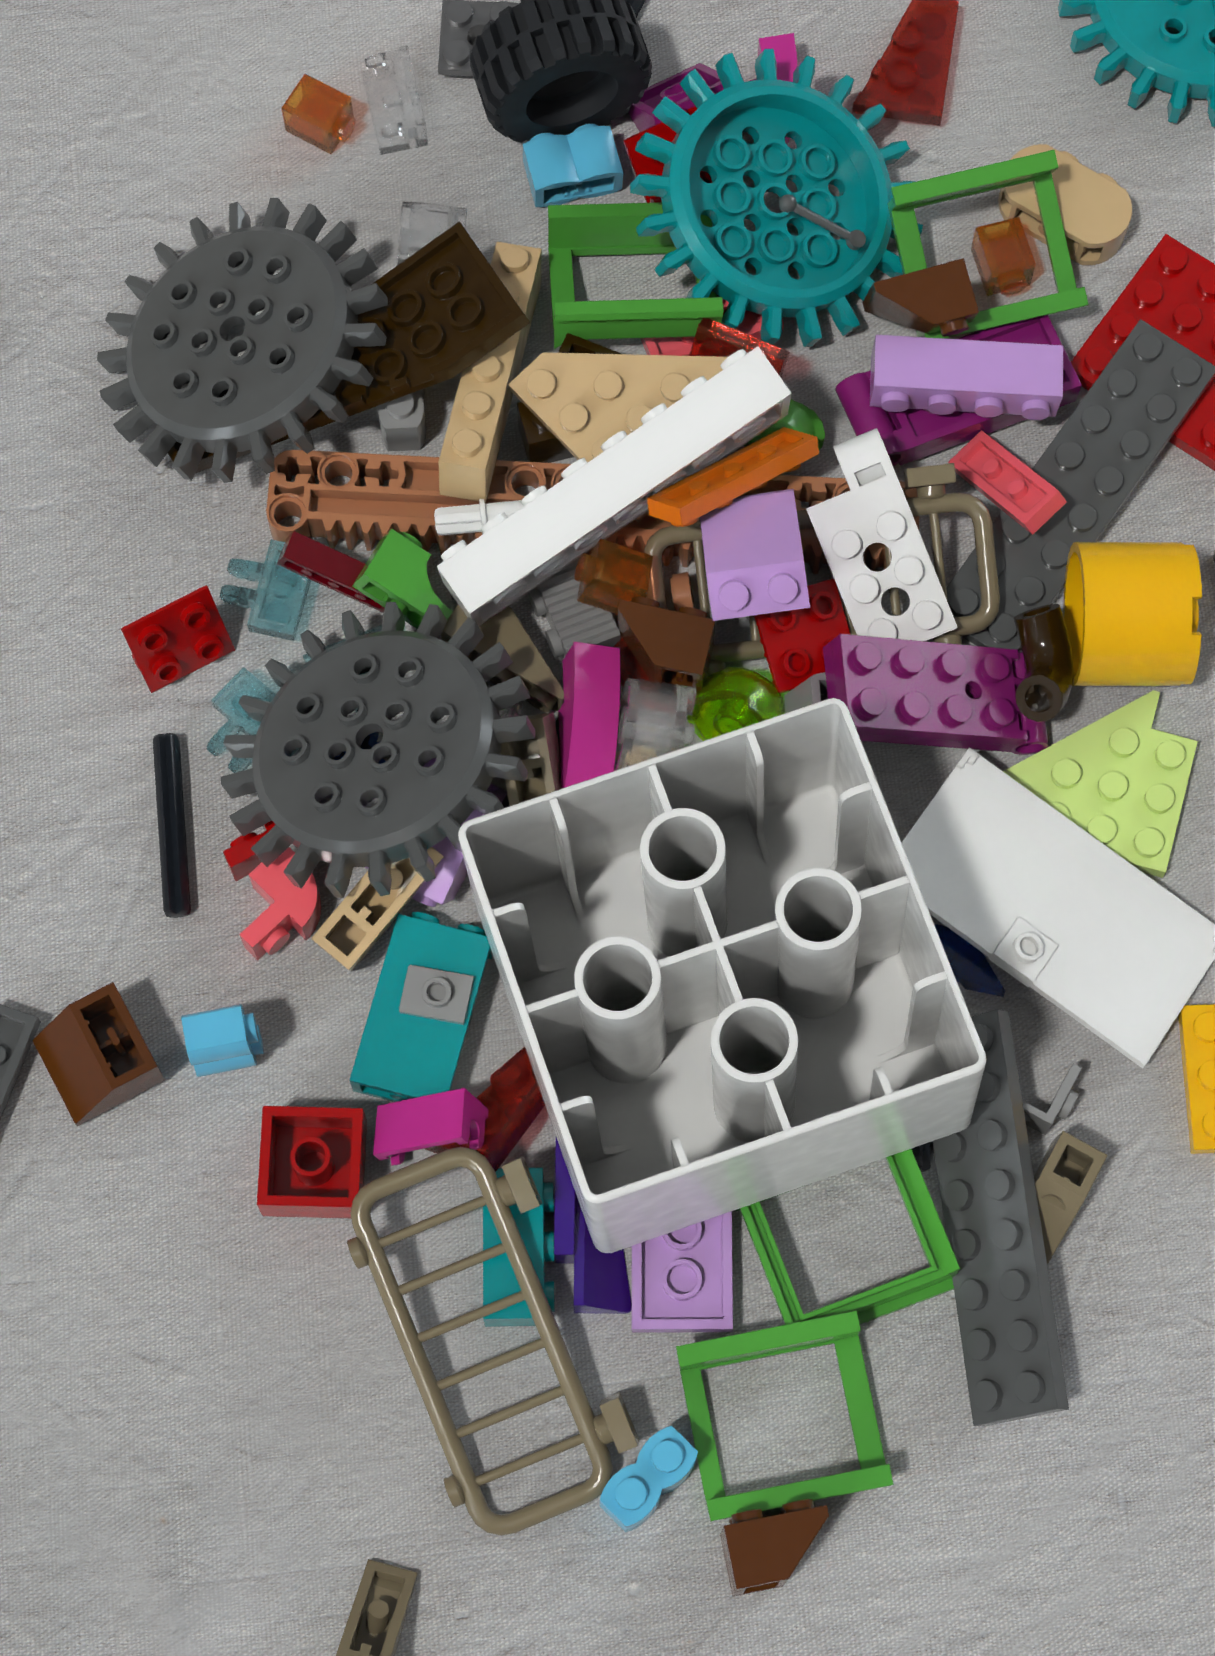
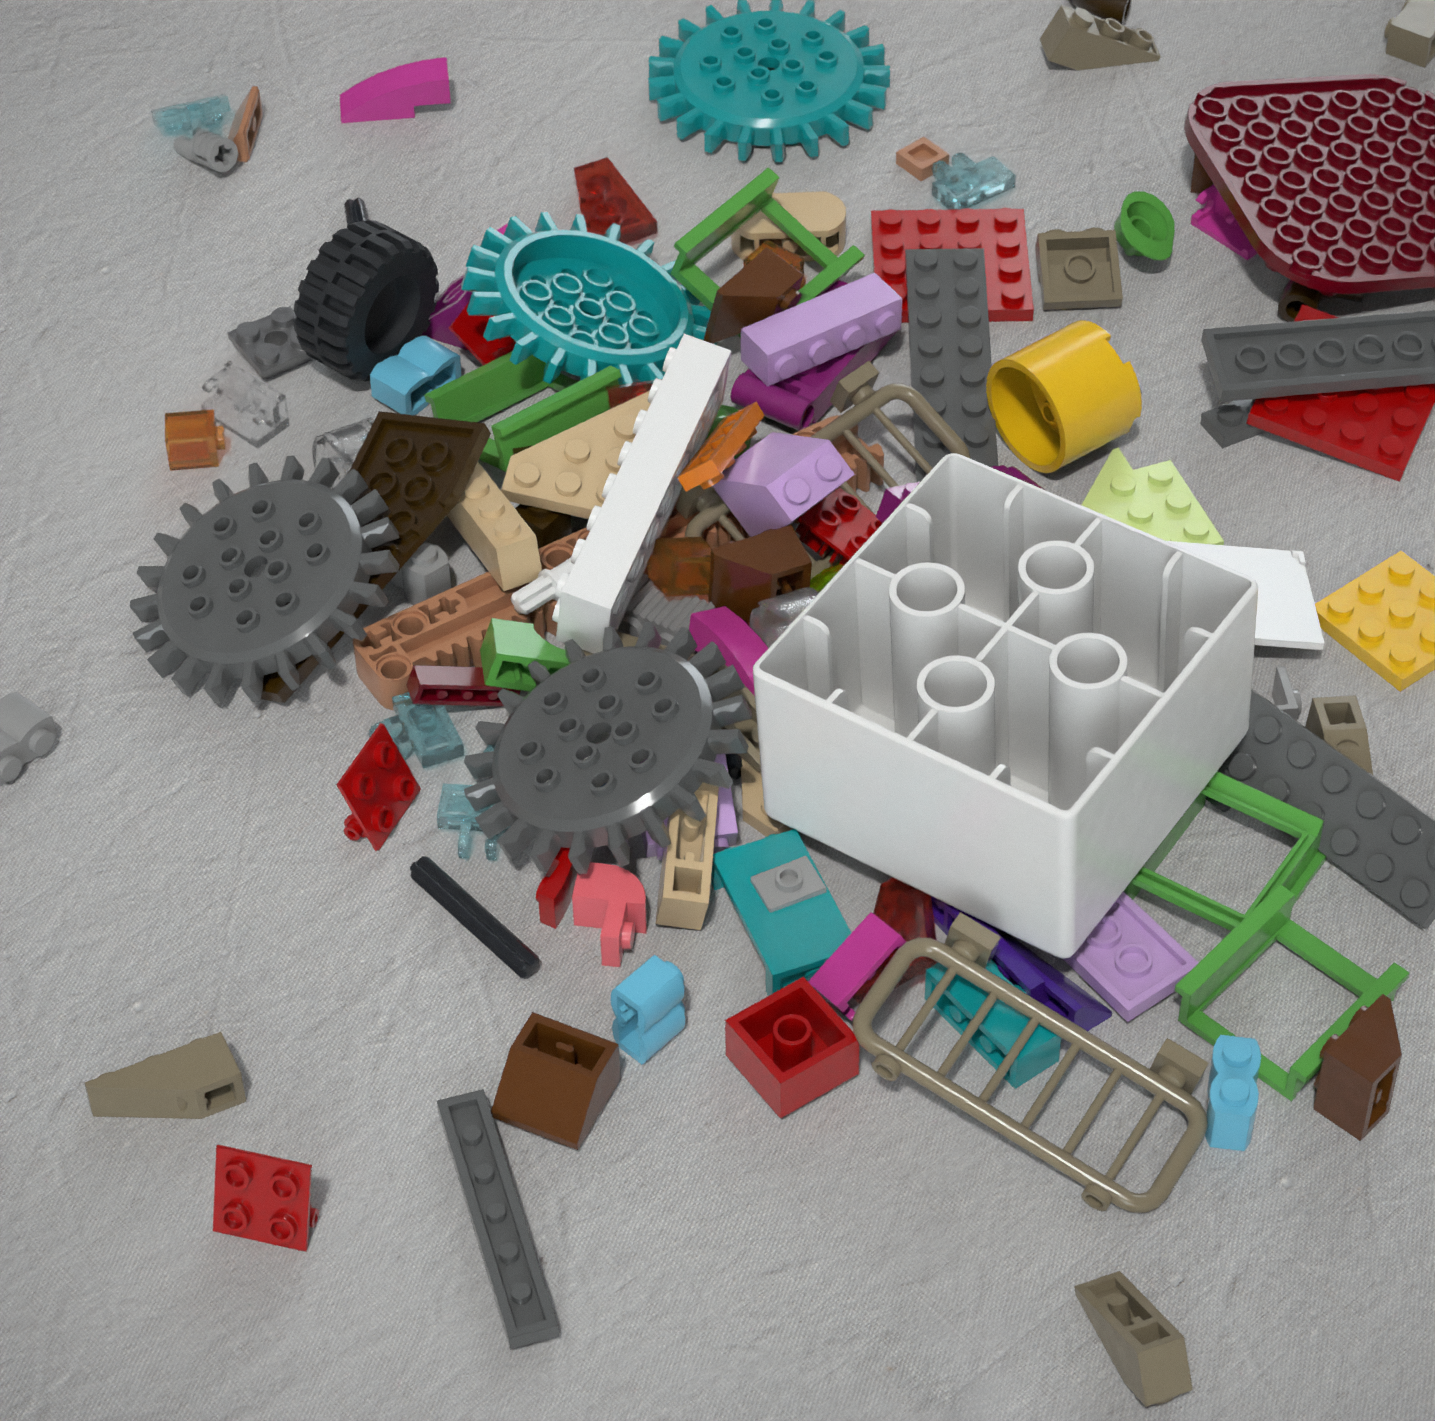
camera: 35 degrees left, 25 degrees down
(854, 239) = (666, 302): dark grey hinge -> none
(878, 513) = (839, 417): white hinge -> none
(1007, 482) = (924, 372): coral plate -> none
(1046, 662) = (1030, 455): dark brown cylinder -> none

